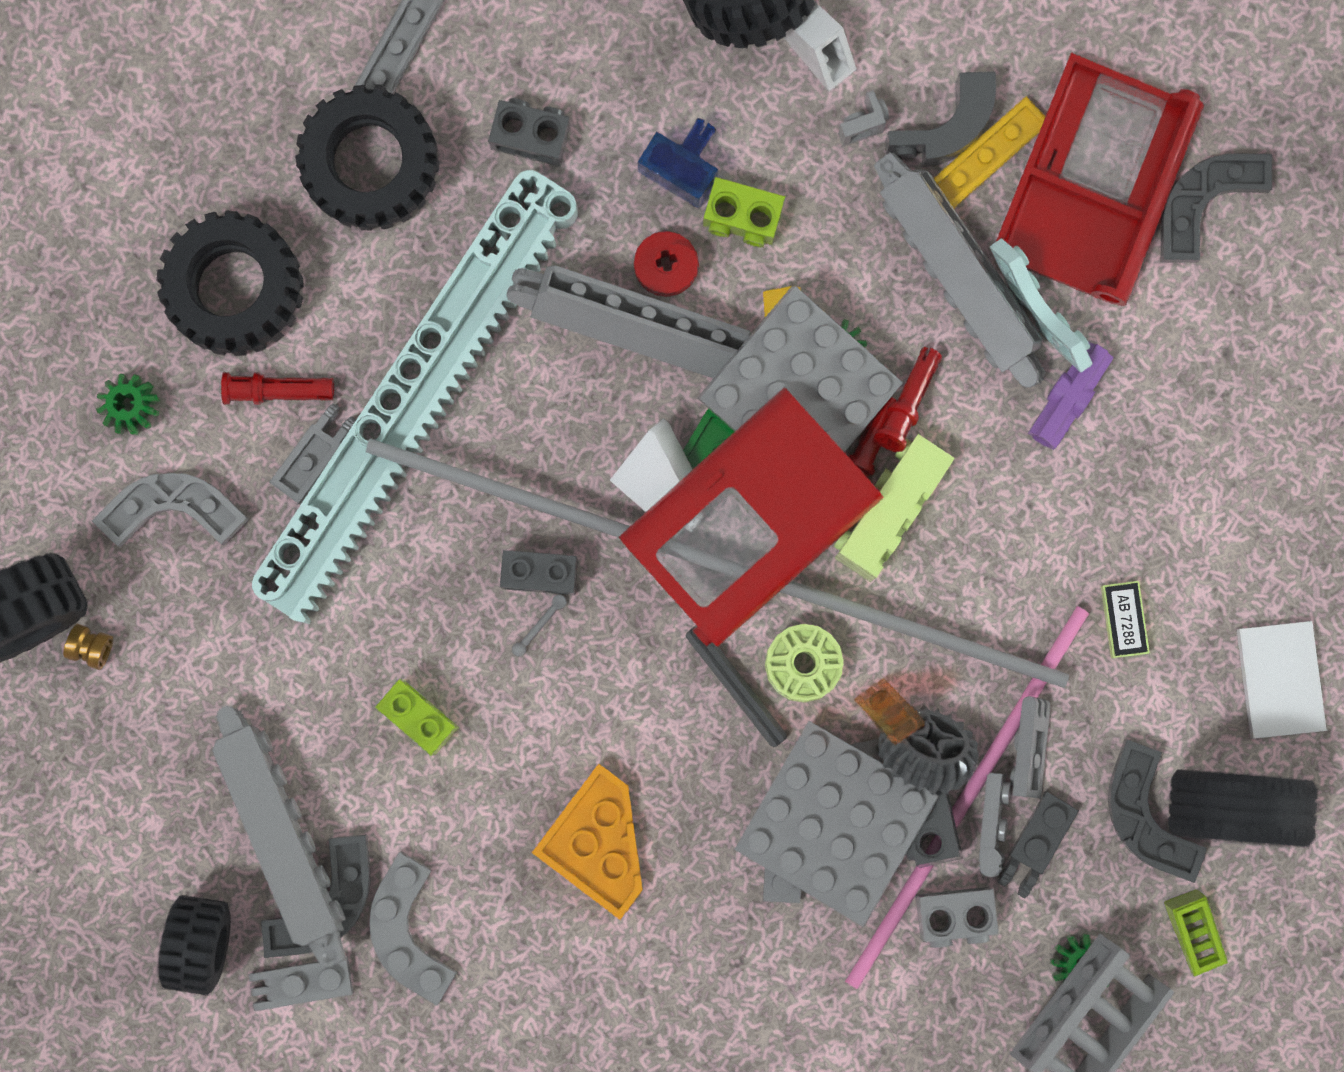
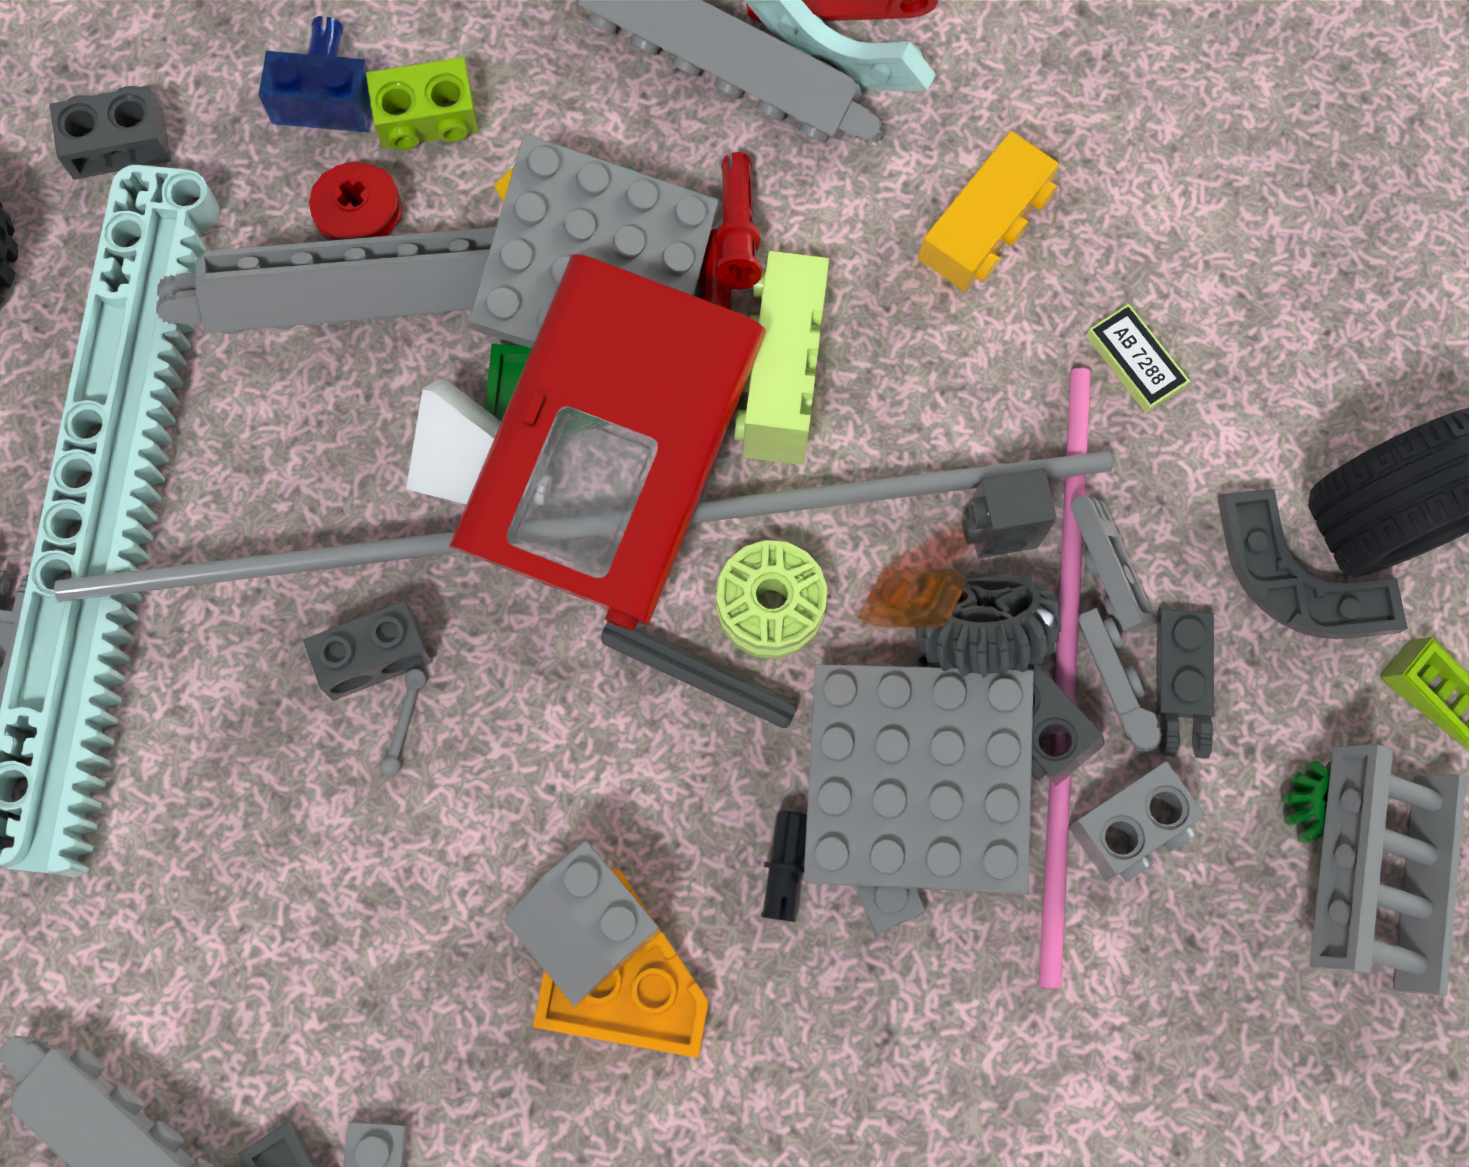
camera: 30 degrees left, 10 degrees down
(417, 717) = (288, 920): lime brick -> none
(589, 808) = (581, 923): none -> light grey slope
(728, 833) = (785, 866): none -> black axle
(979, 686) = (1009, 513): none -> dark grey brick
(1069, 399) = (929, 137): medium lavender piece -> none
(1081, 474) = (990, 212): none -> yellow brick
(1281, 680) = (1362, 339): white tile -> none

